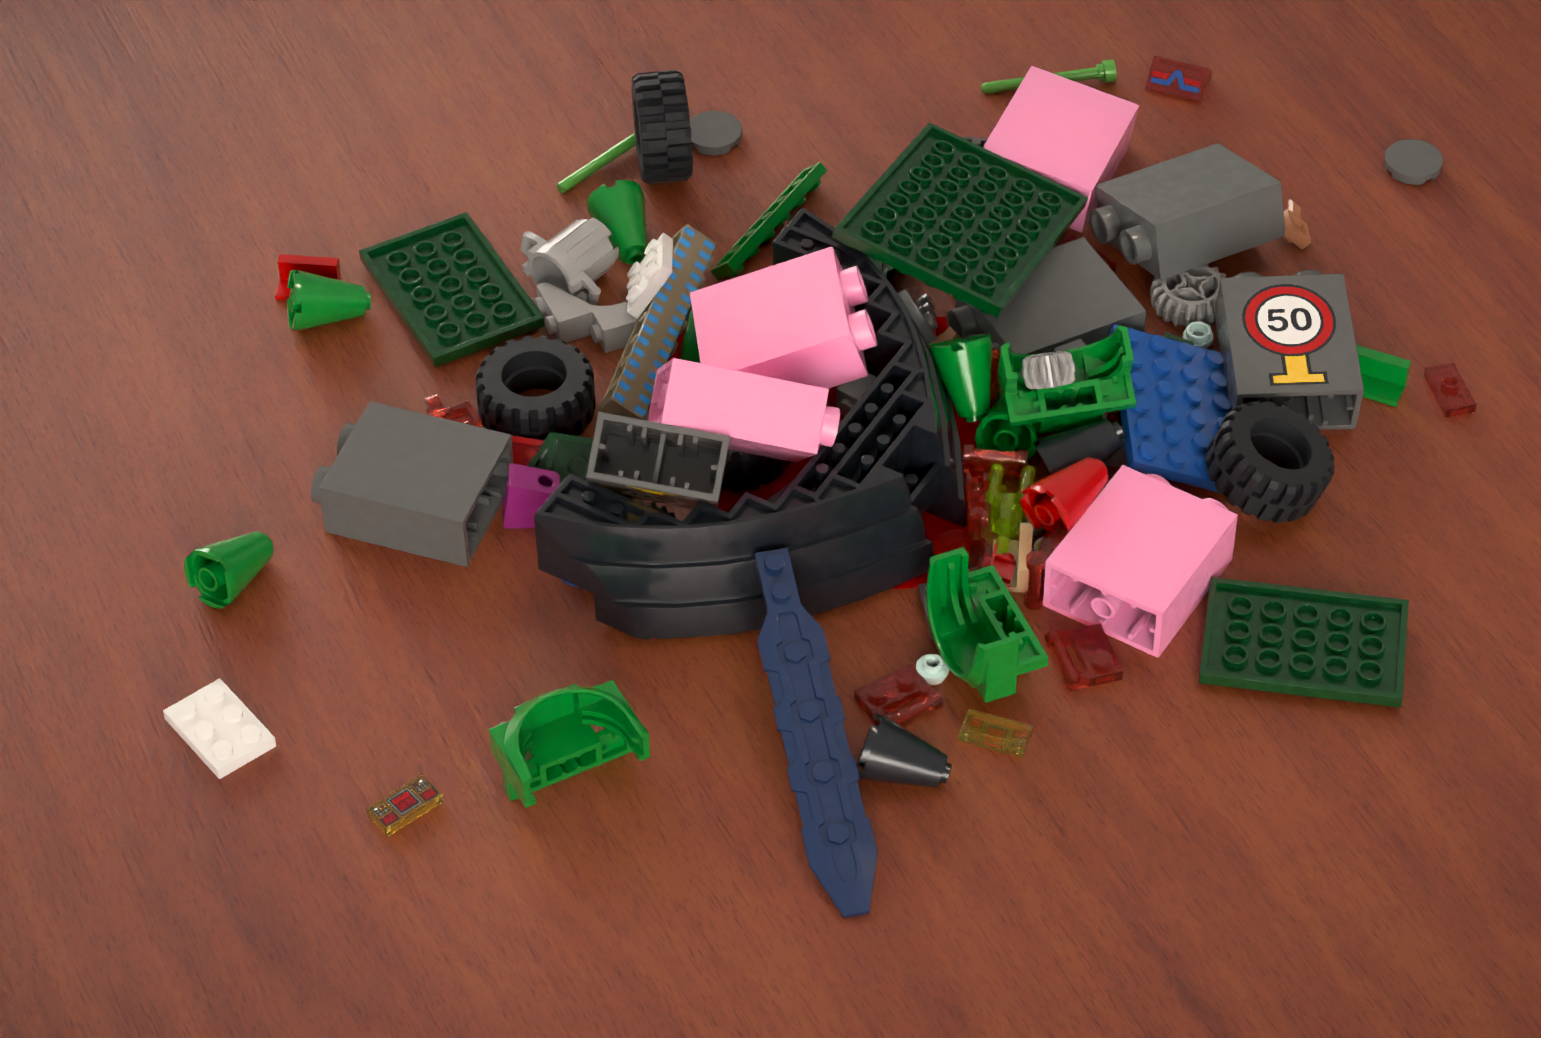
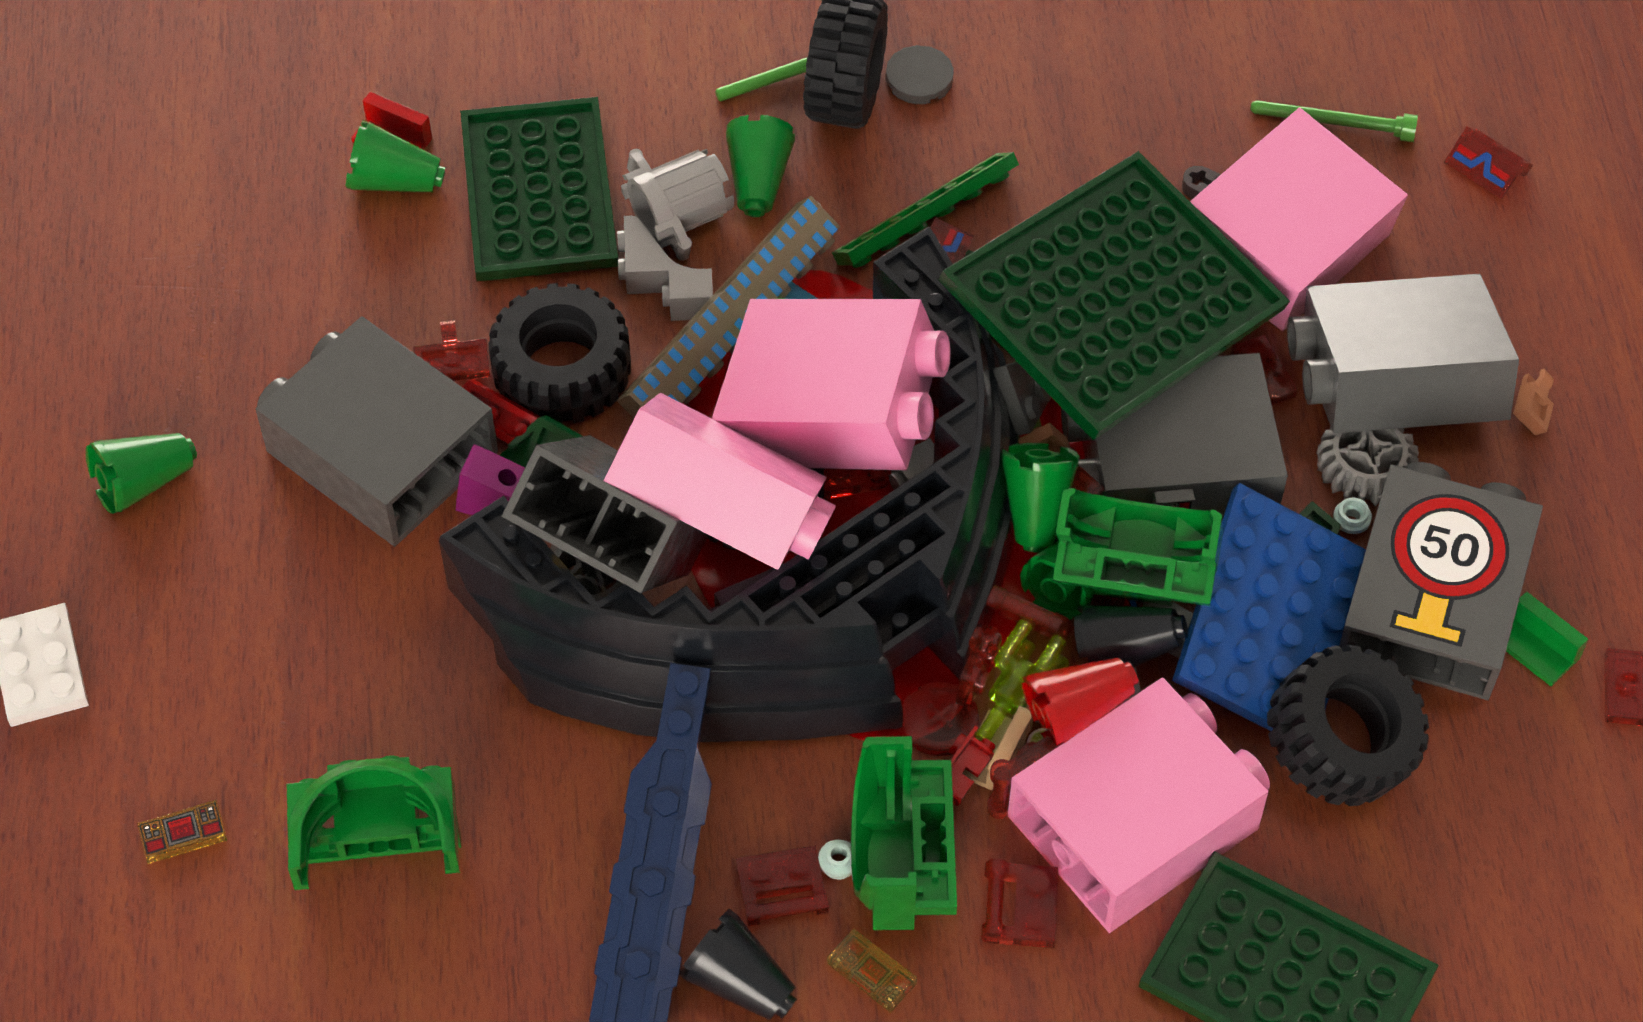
camera: 20 degrees right, 10 degrees up
(649, 275) = (747, 244): white plate -> none
(1048, 370) = (1118, 531): light grey gear -> none

